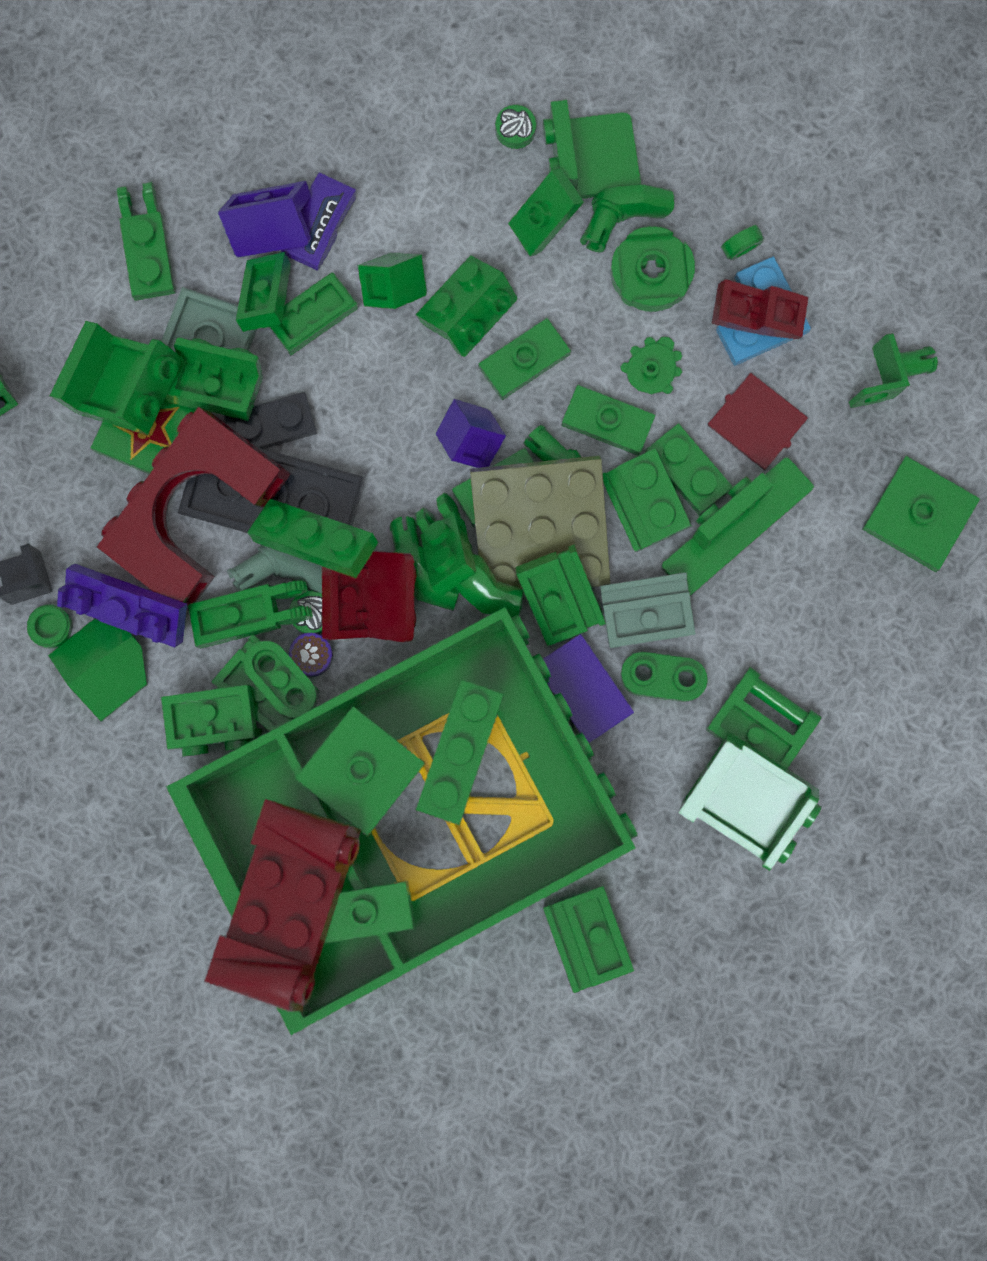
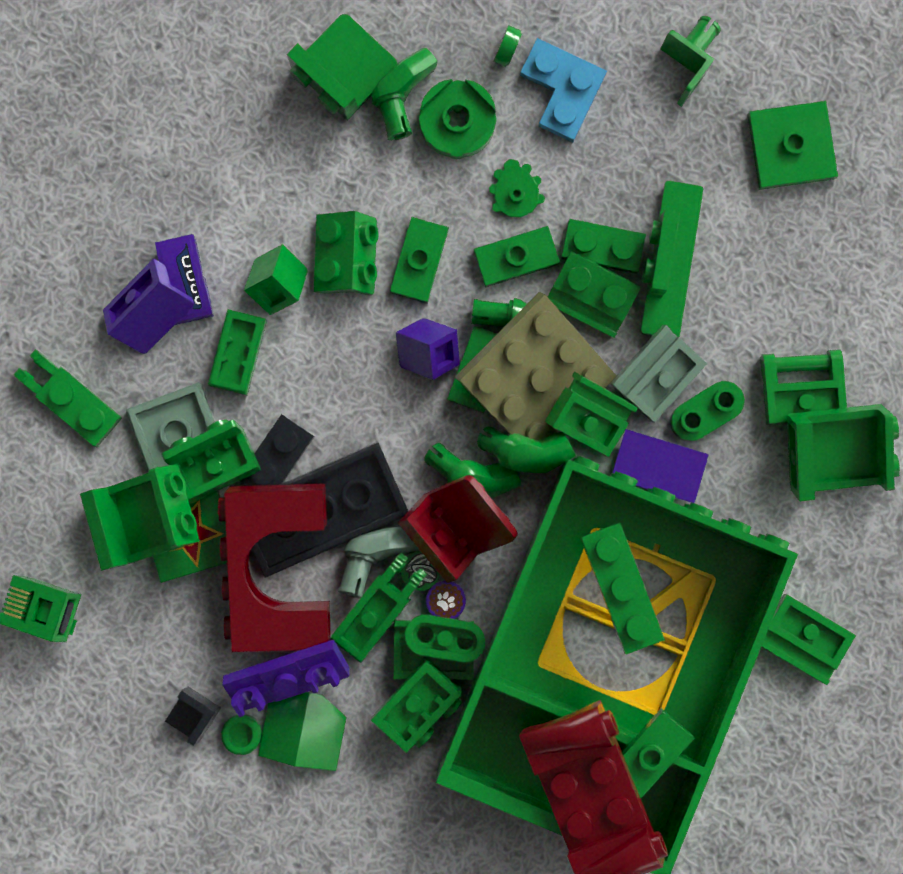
camera: 40 degrees left, 5 degrees up
(263, 292) = (191, 366): green plate -> none
(313, 538) = (385, 519): green plate -> none
(360, 771) = (564, 660): green plate -> none
(445, 546) = (483, 446): green hinge -> none
(515, 126) = (268, 89): tile -> none
(545, 212) = (349, 139): green plate -> none
(757, 421) = (623, 170): dark red piece -> none
(759, 311) = (563, 89): dark red slope -> none

